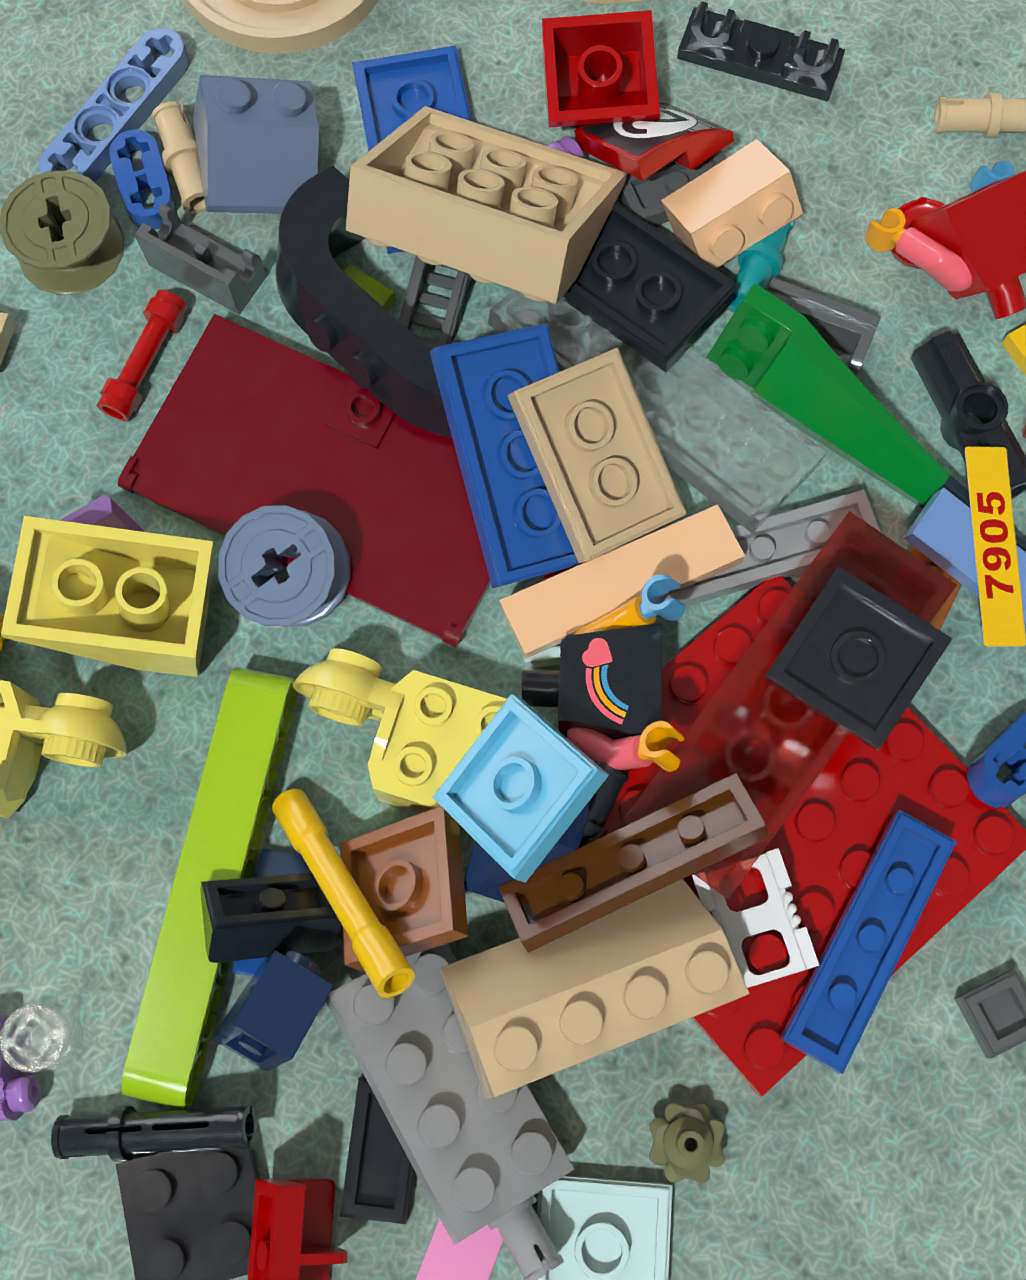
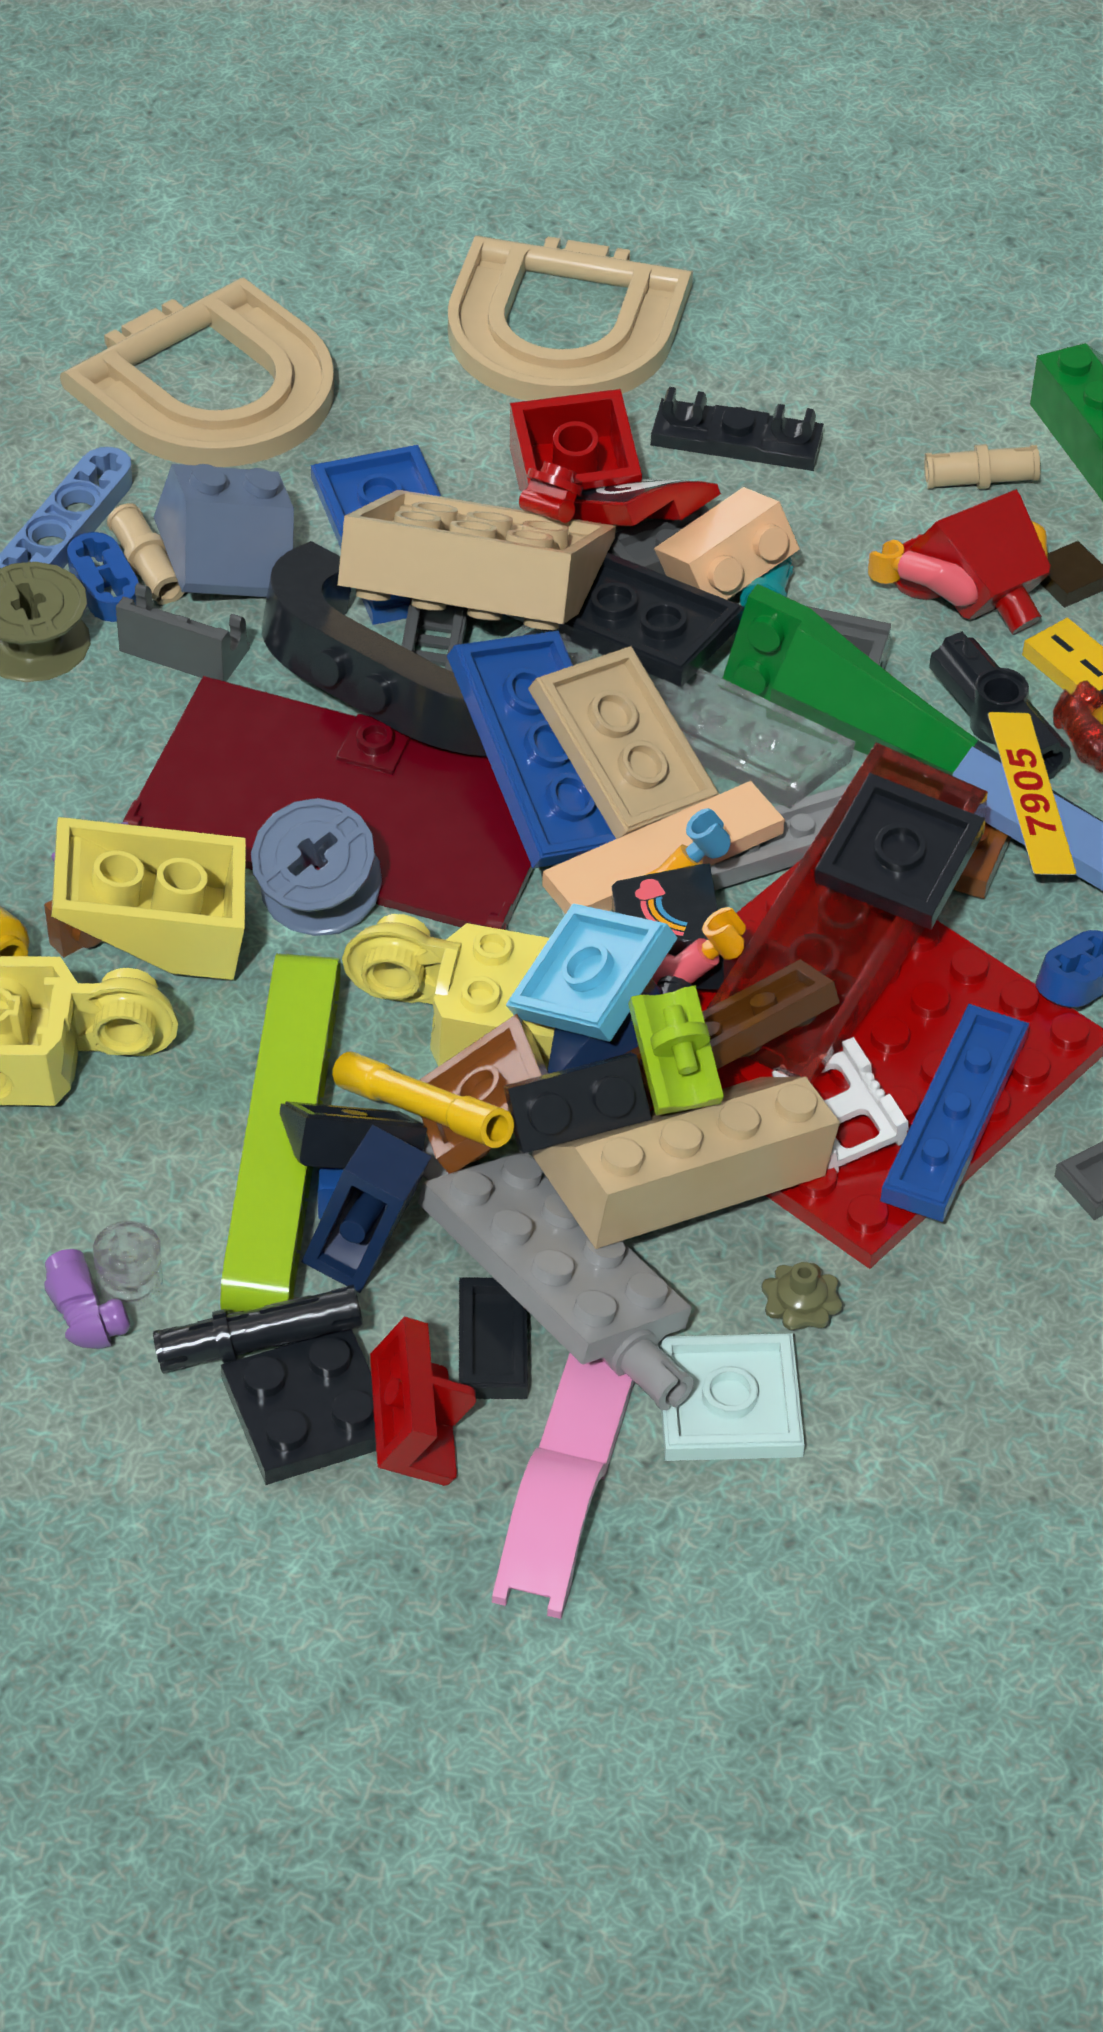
camera: 10 degrees left, 25 degrees down
(163, 315) = (114, 752): red bar -> none
(482, 951) = (577, 1102): none -> black plate
(568, 133) = (551, 492): none -> red plate
(588, 921) = (676, 1050): none -> lime hips

